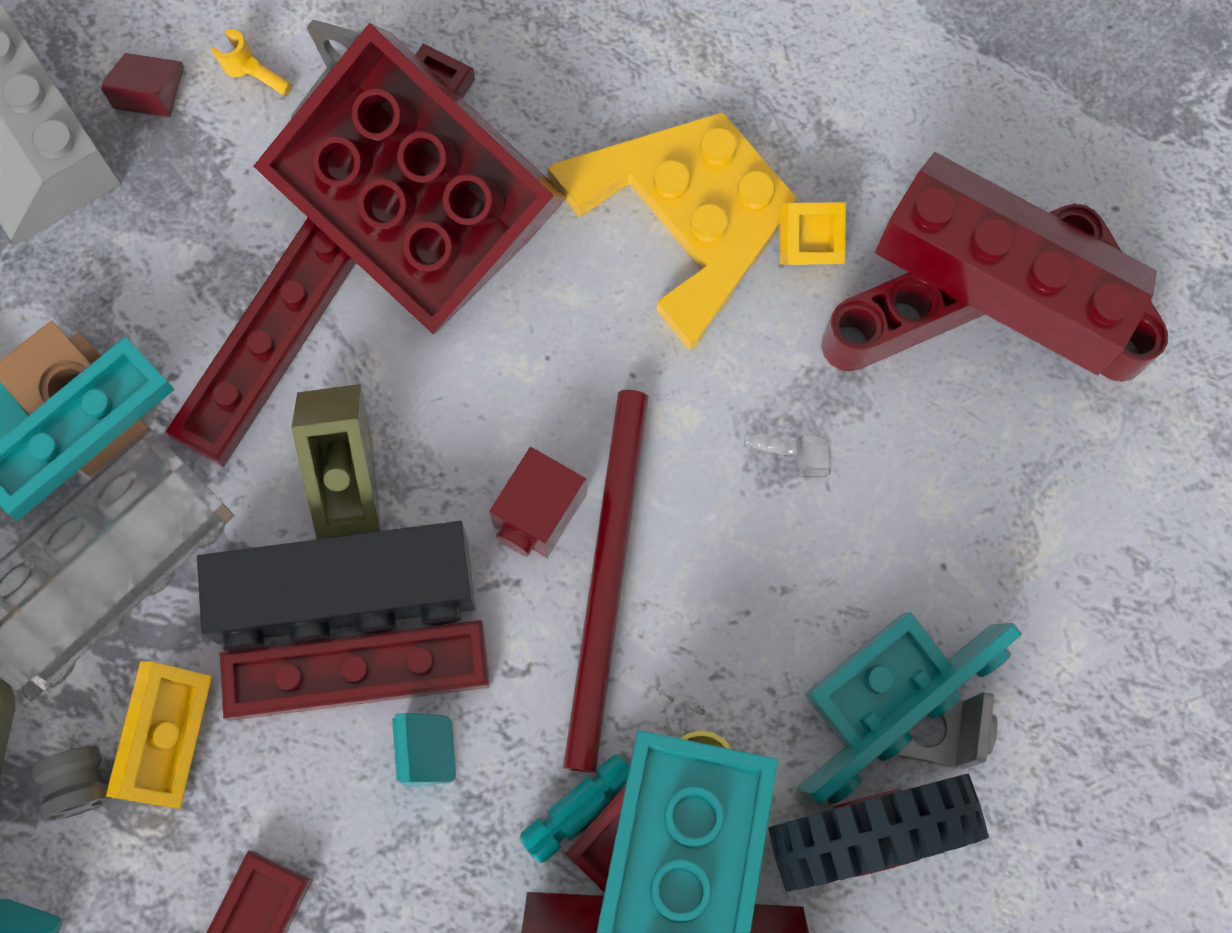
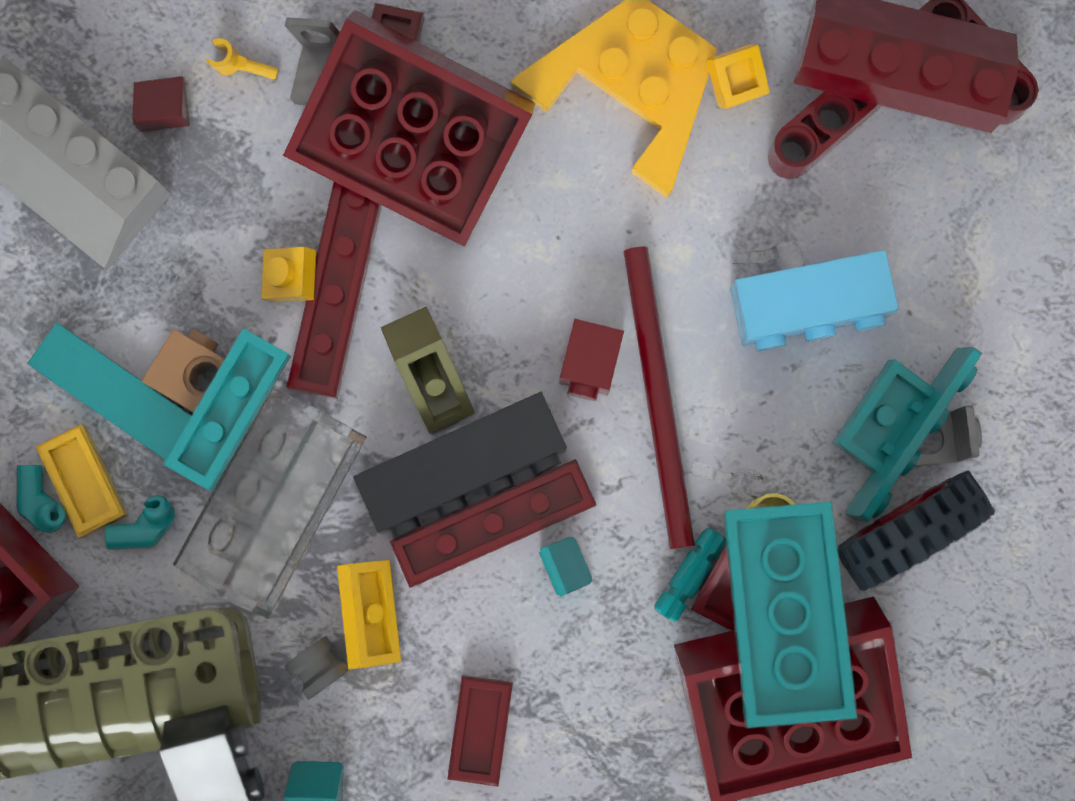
camera: 10 degrees left, 10 degrees up
(215, 304) = (288, 274): none -> yellow plate
(831, 513) = (814, 300): none -> medium azure brick

